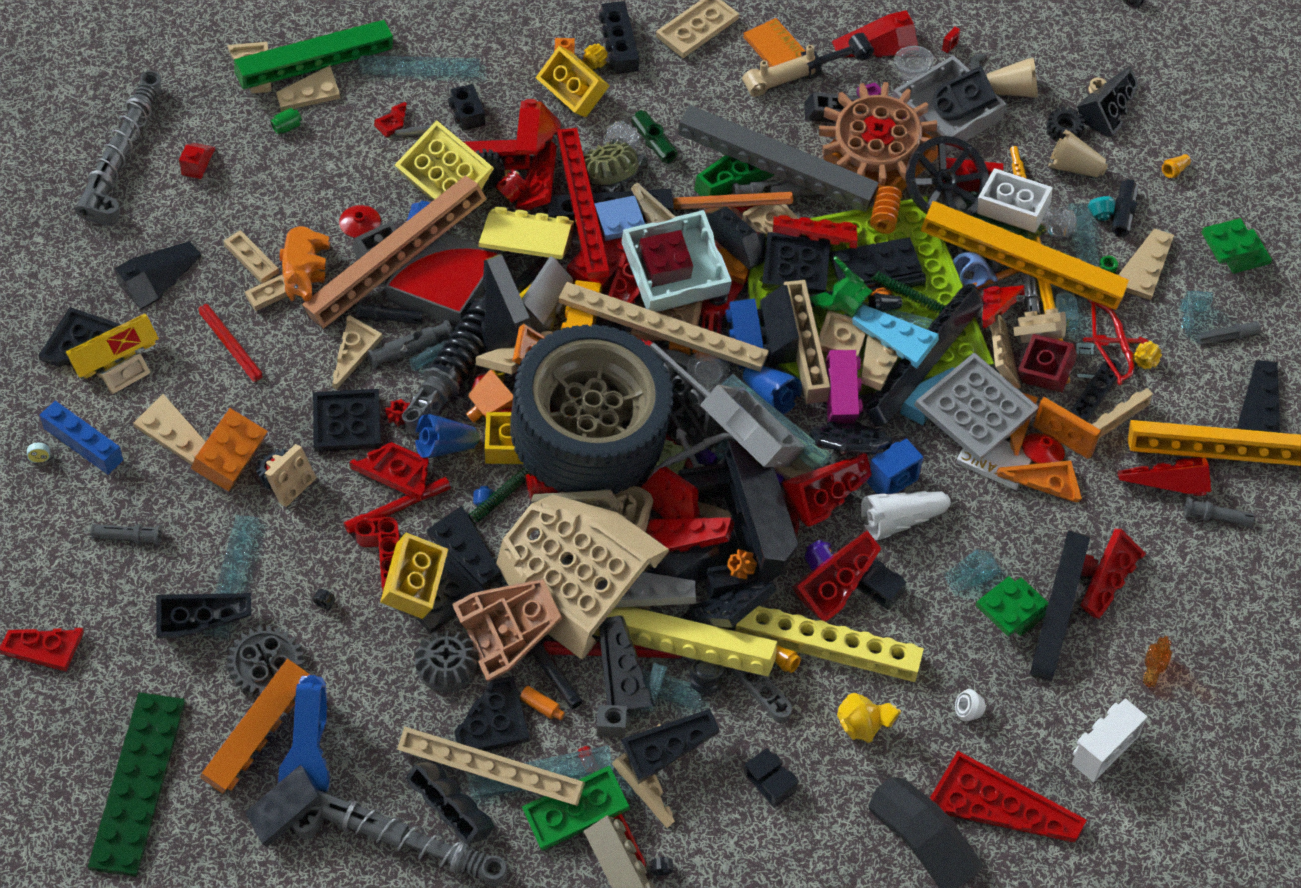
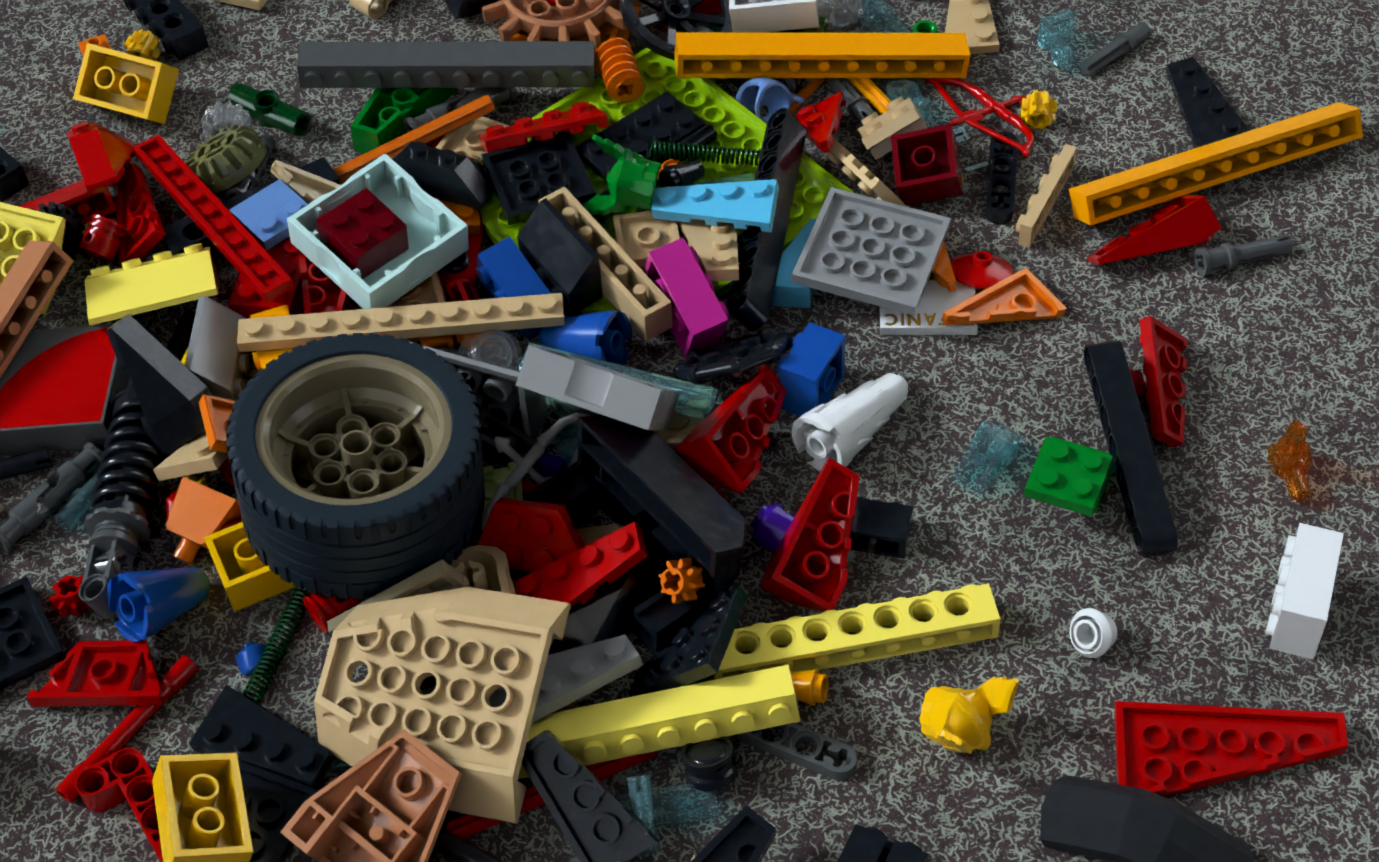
camera: 20 degrees left, 5 degrees down
(1066, 428) = (998, 229): orange tile -> none

